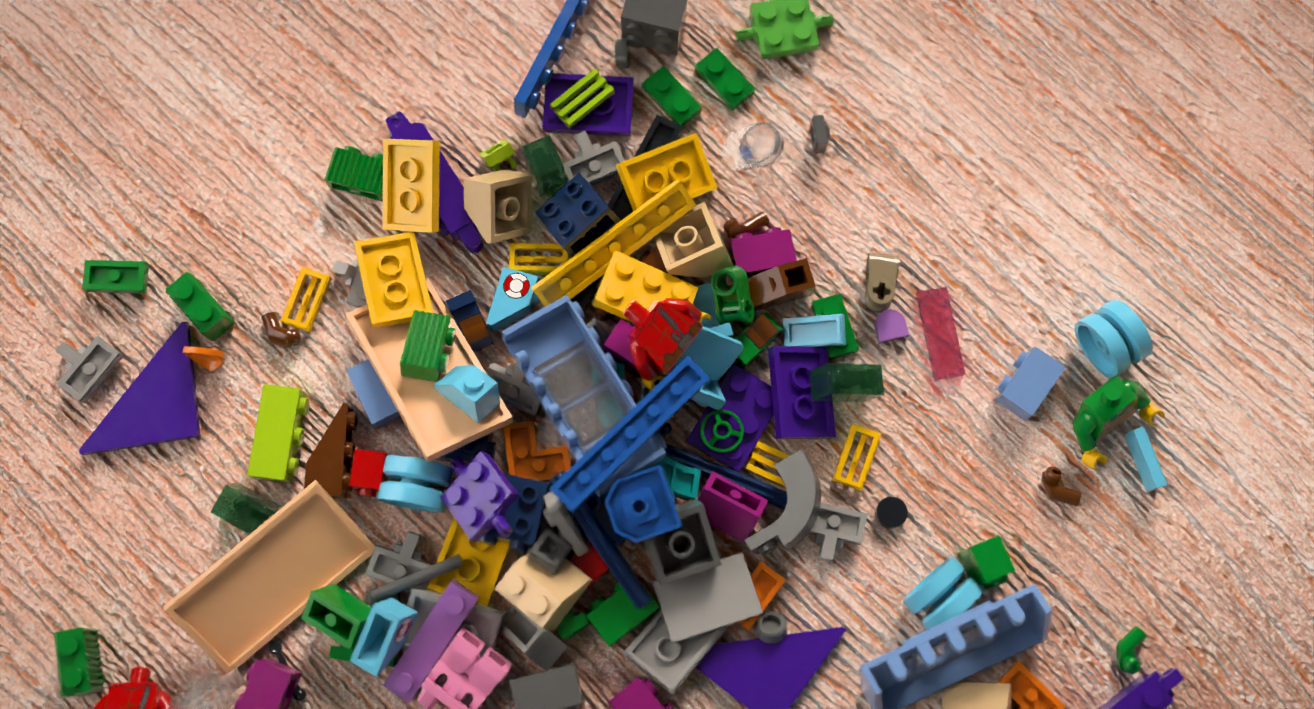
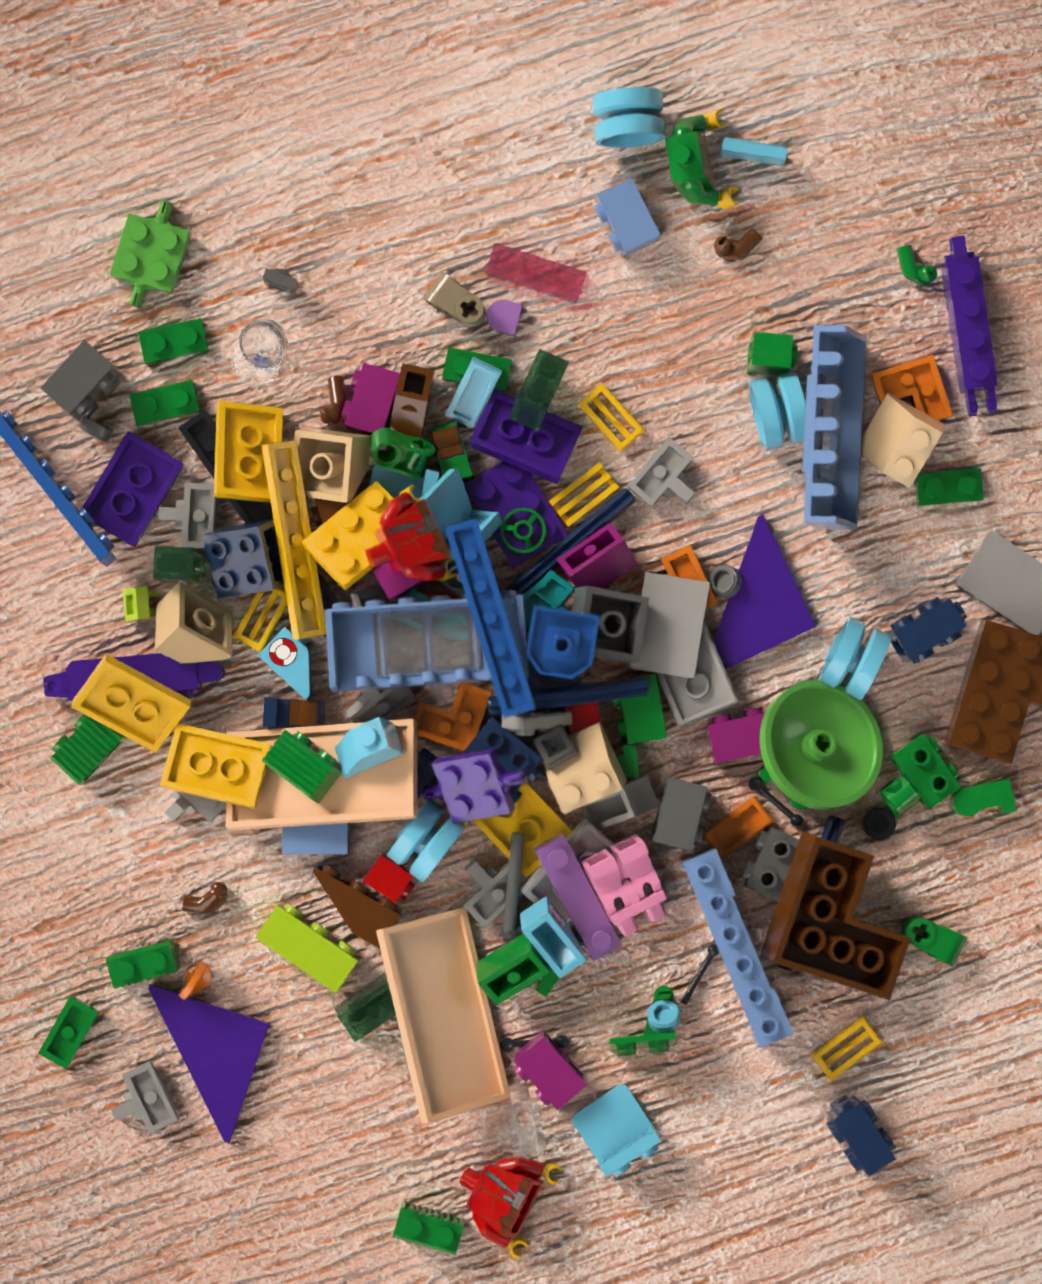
camera: 60 degrees left, 10 degrees up
(317, 302) = (167, 839): yellow tile -> none
(592, 76) = (118, 465): lime tile -> none
(801, 507) = (631, 492): arch -> none
(891, 512) = (678, 413): black tile -> none

